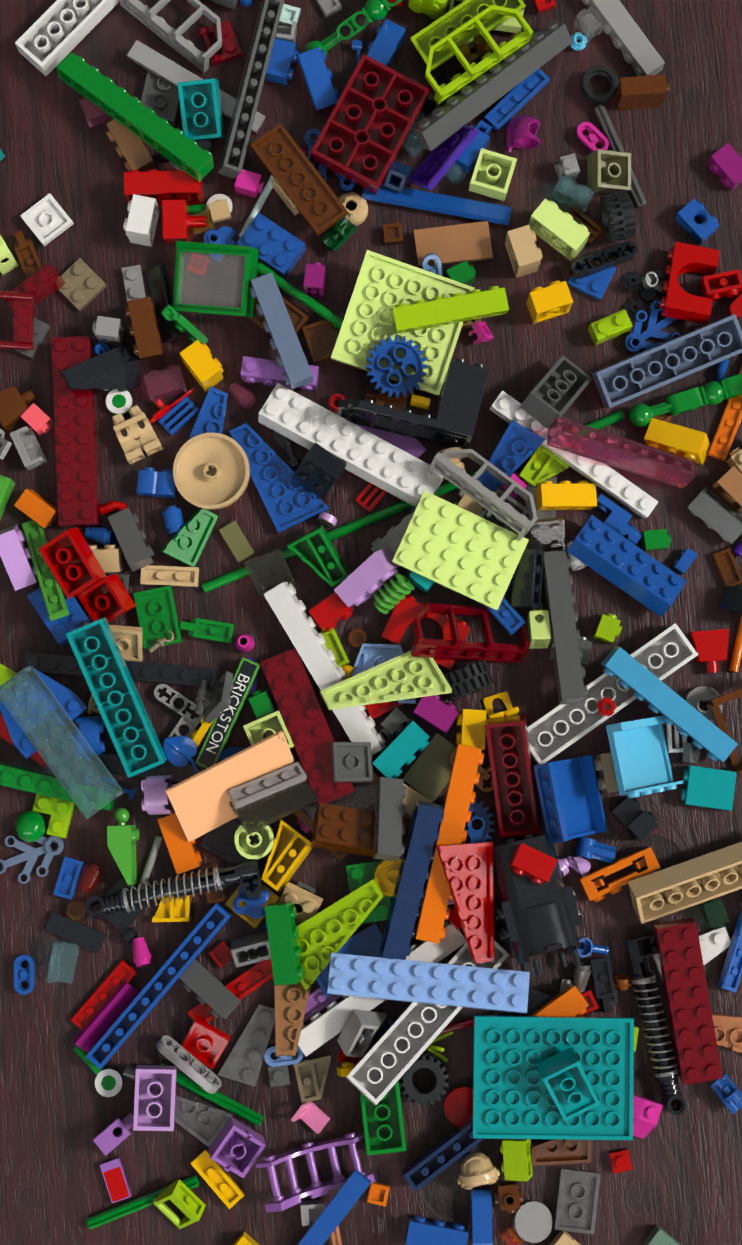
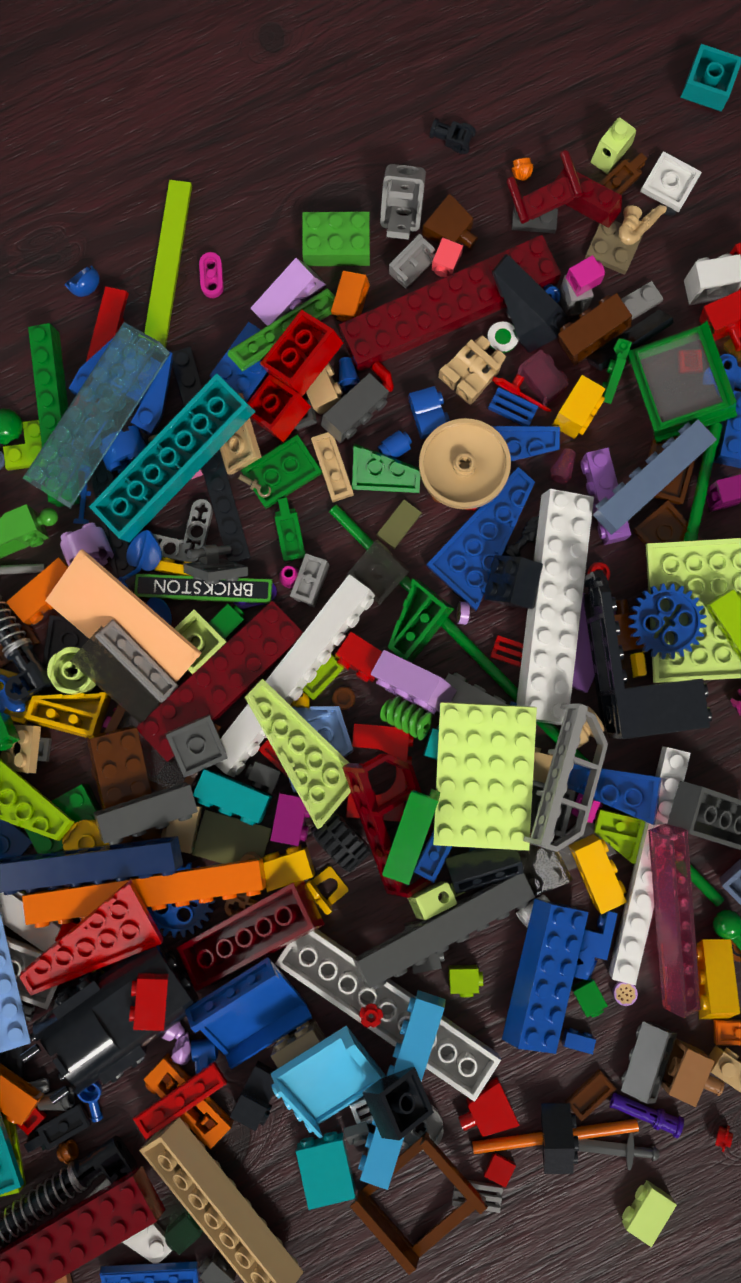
camera: 75 degrees right, 0 degrees up
(74, 264) = (633, 229): none -> tan piece
(103, 318) = (585, 275): none -> dark pink brick
(254, 628) = (310, 580): none -> light grey hinge
(484, 623) = (410, 836): none -> green panel
(615, 877) = (180, 1100): none -> red tile
(662, 512) = (624, 993): none -> tile
(676, 709) = (398, 1103): none -> black slope

